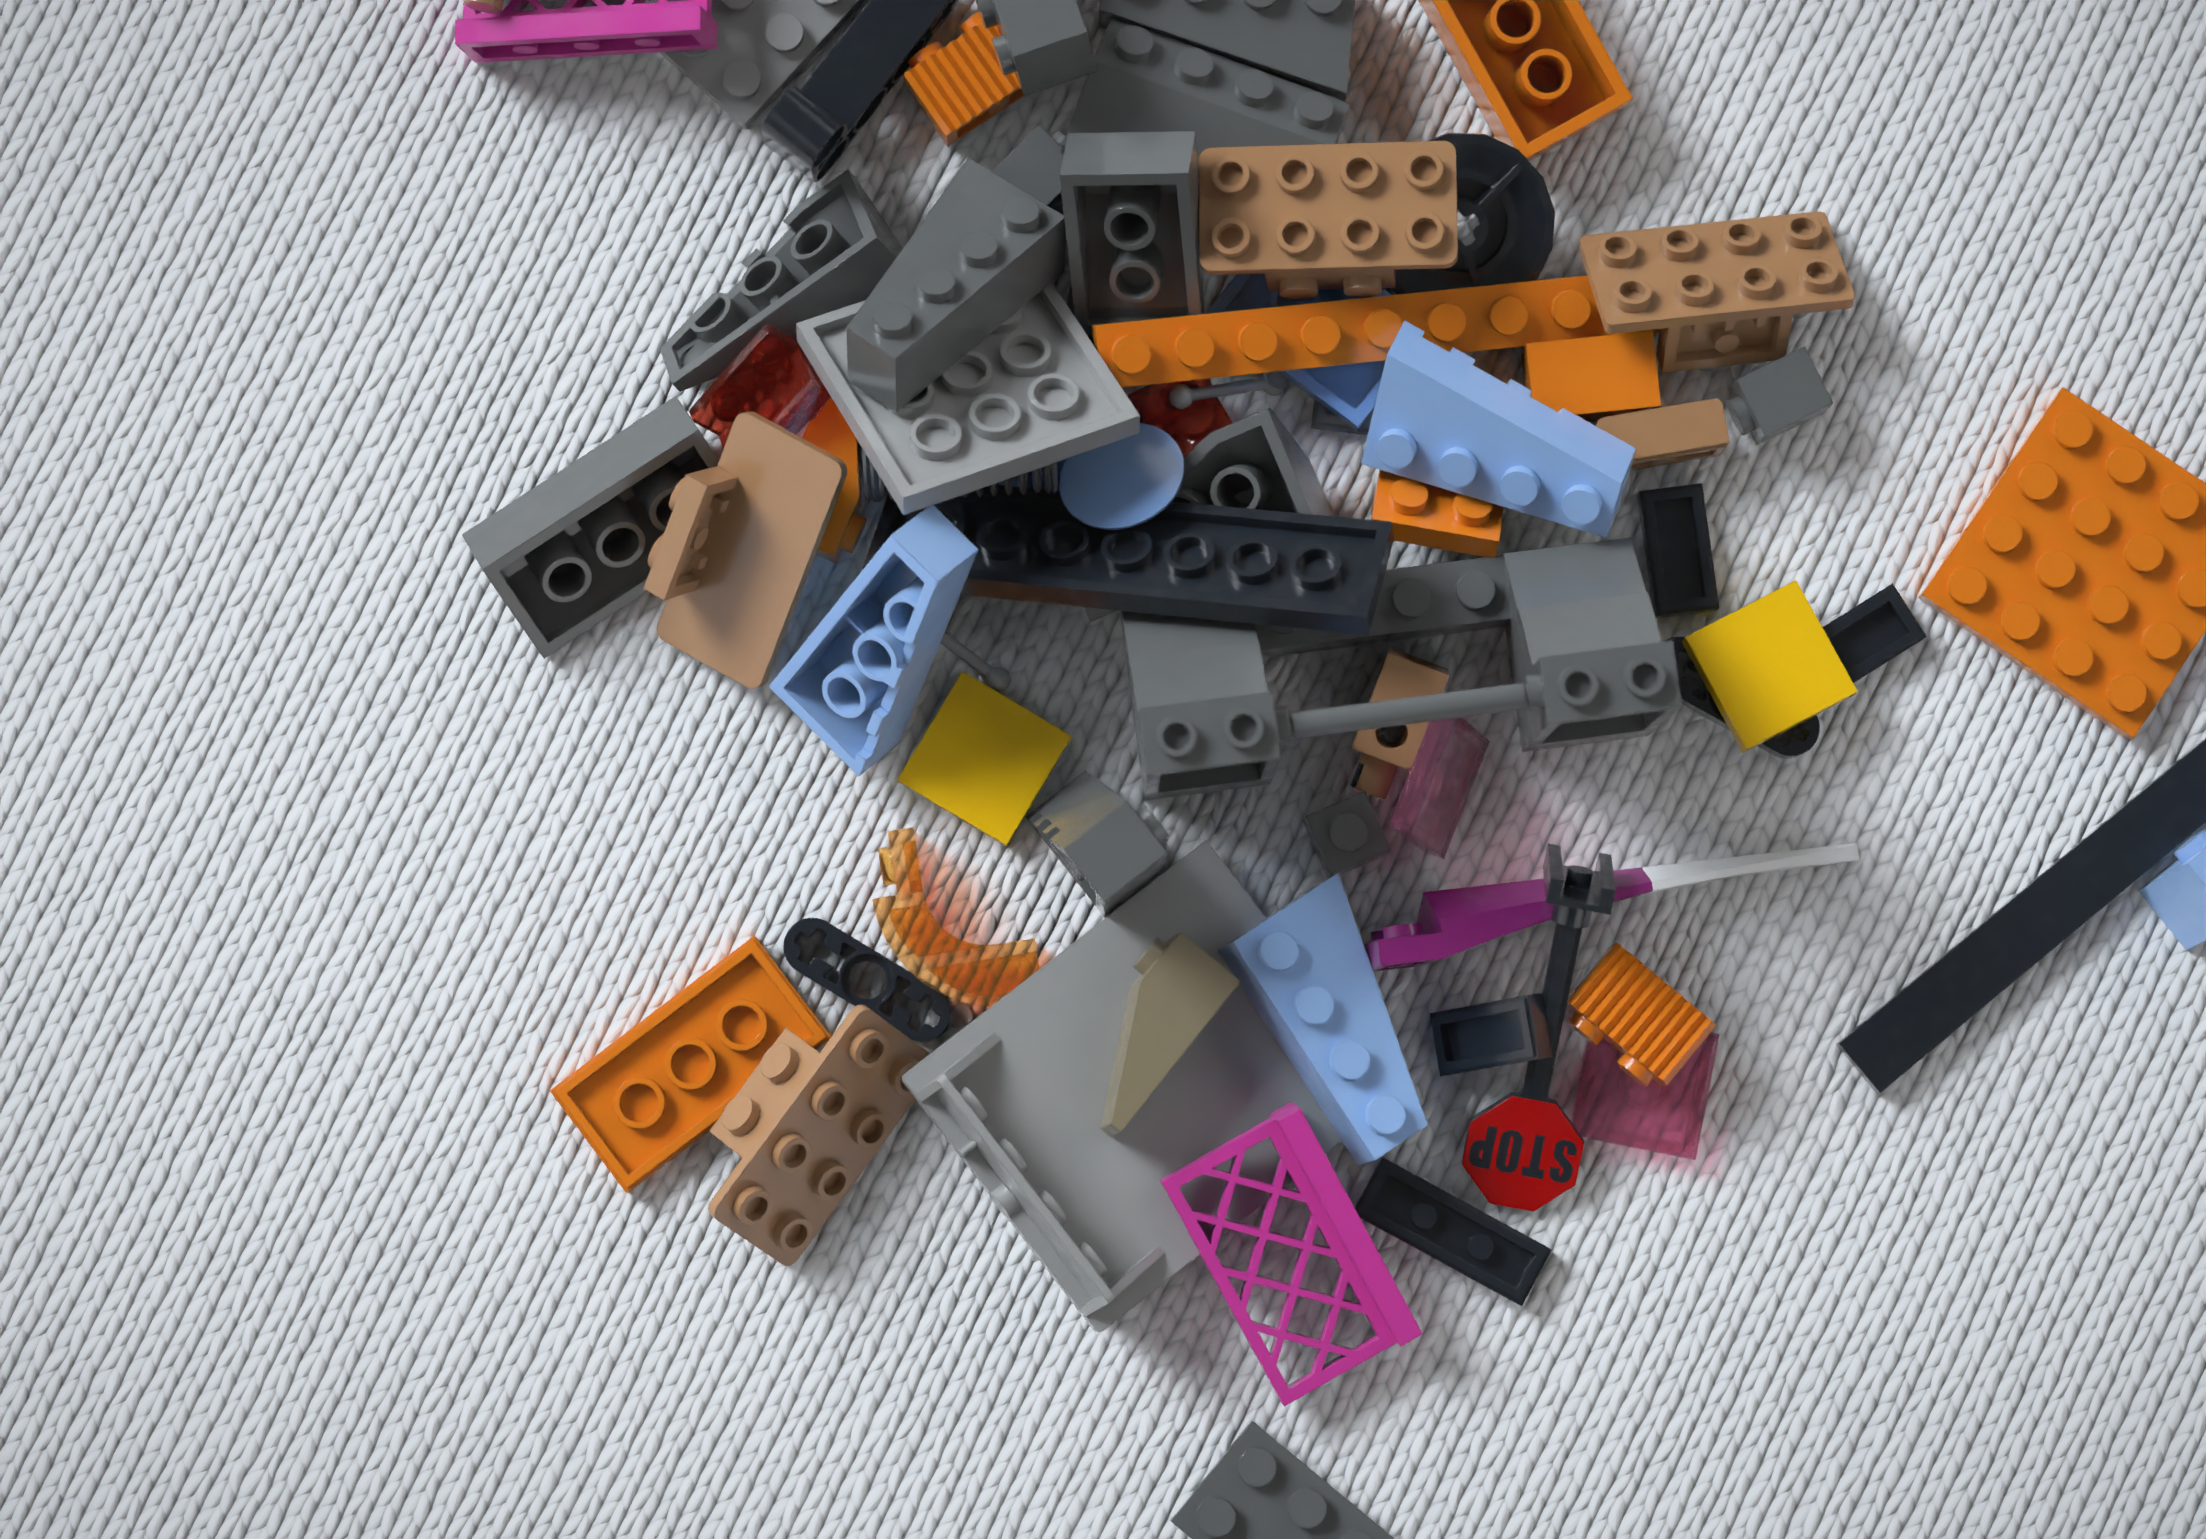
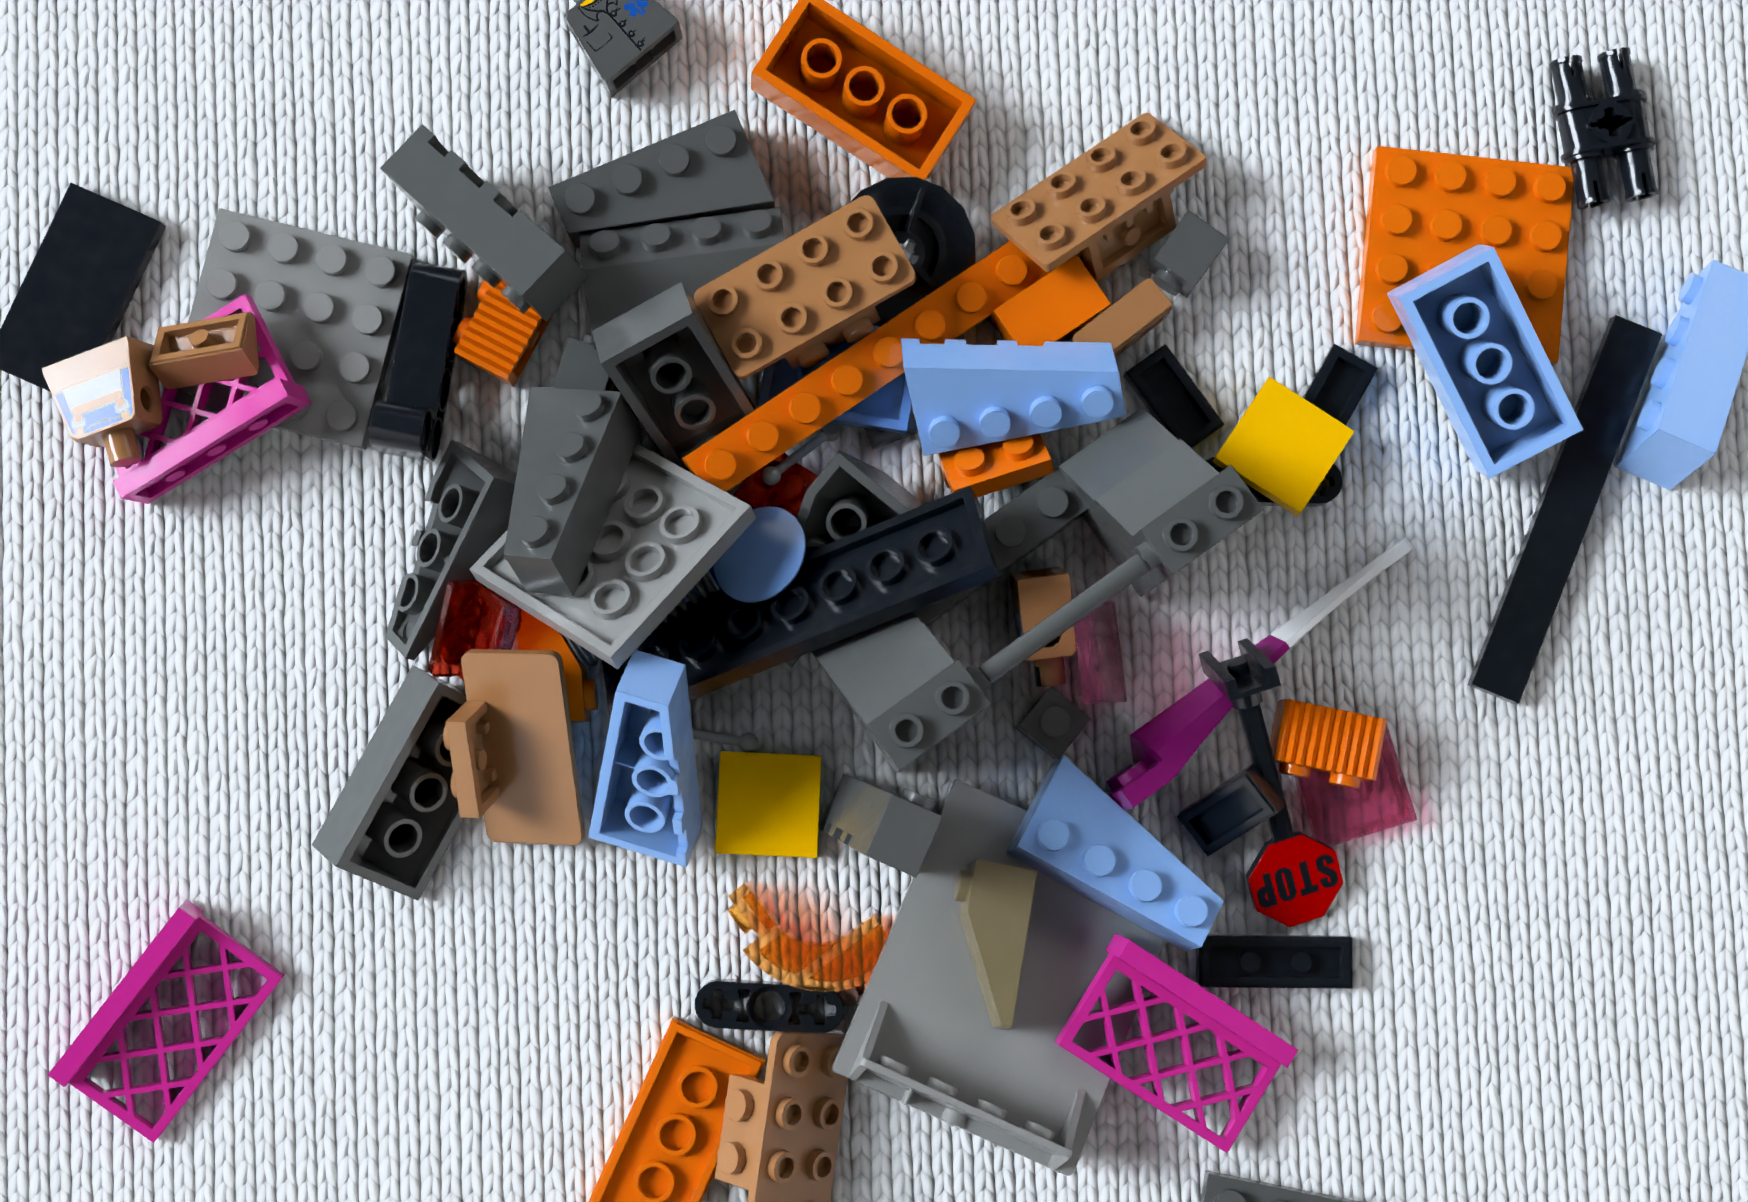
camera: 30 degrees left, 0 degrees up
(178, 595) = (130, 996): none -> dark pink fence
(2042, 688) = (1485, 360): none -> light blue brick

